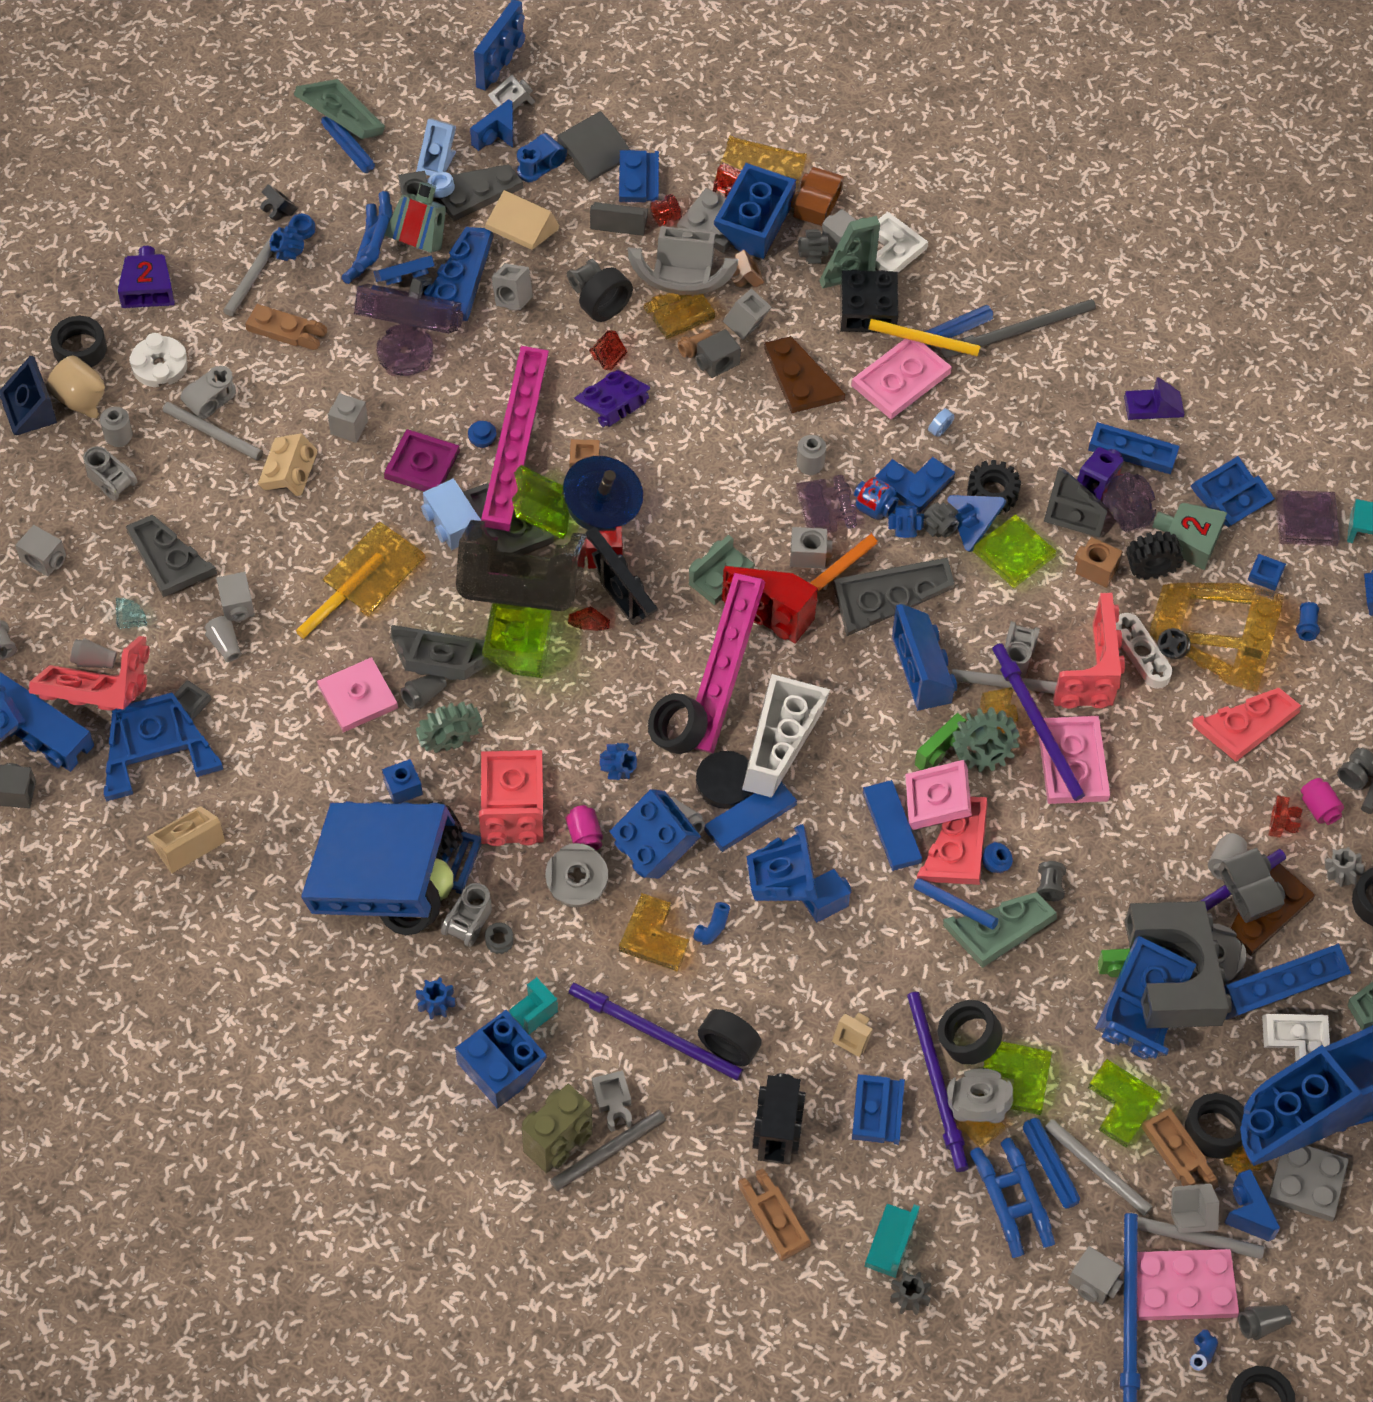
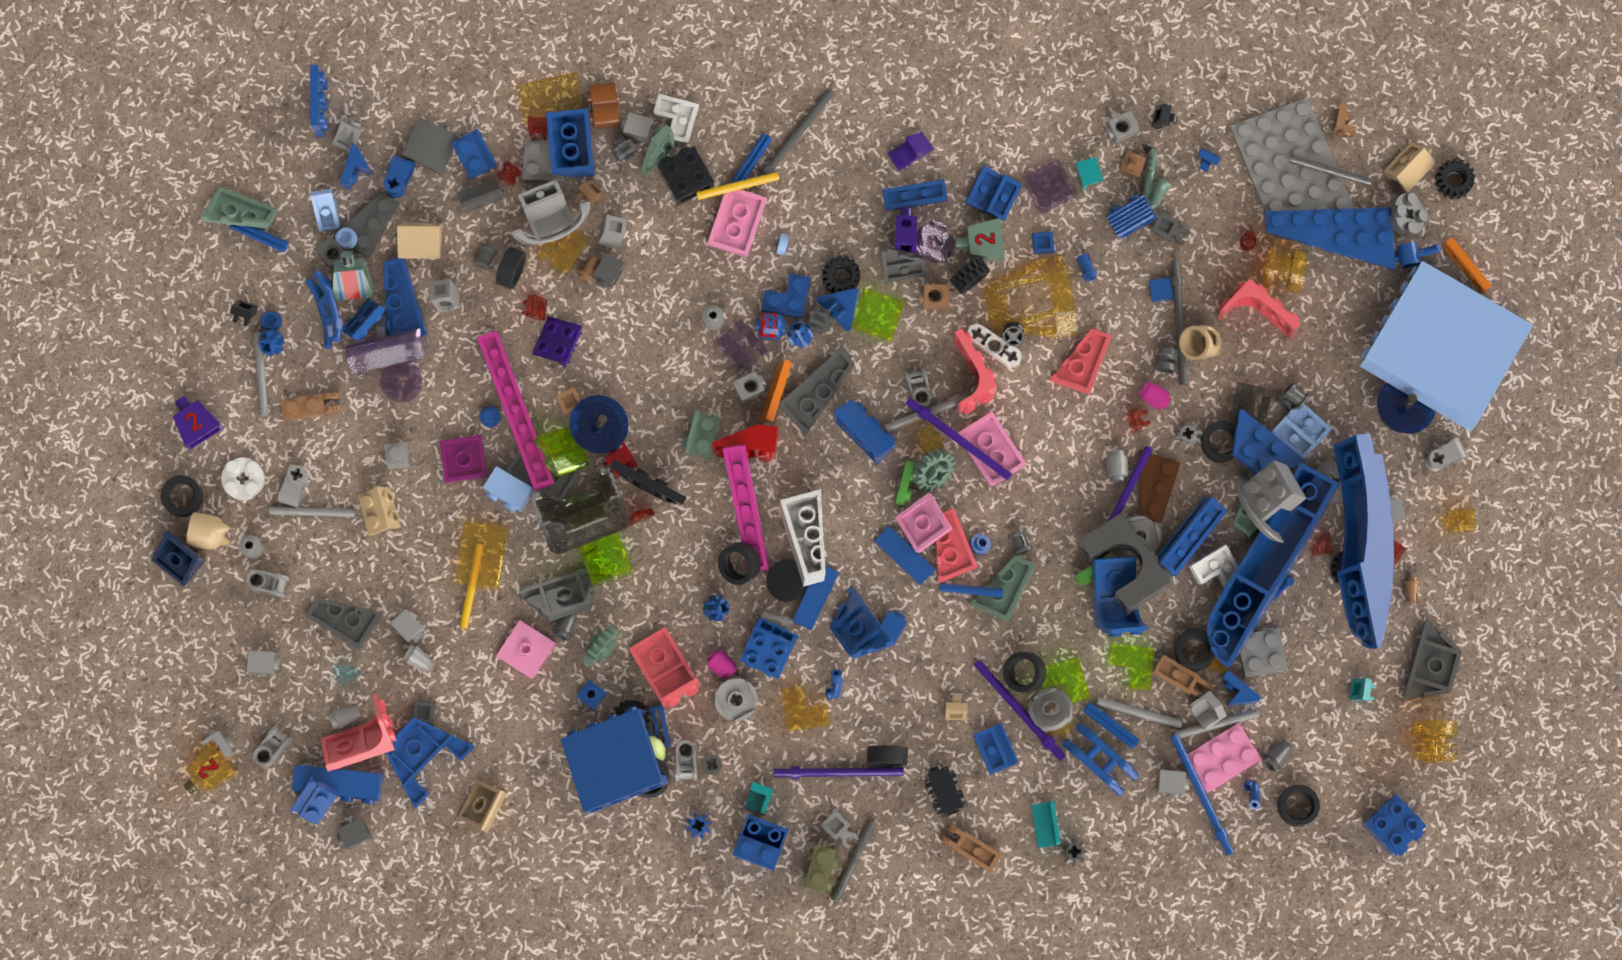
camera: 25 degrees left, 20 degrees up
(800, 377) = (670, 256): reddish brown wing -> none
(1251, 885) = (1143, 483): dark grey brick -> none

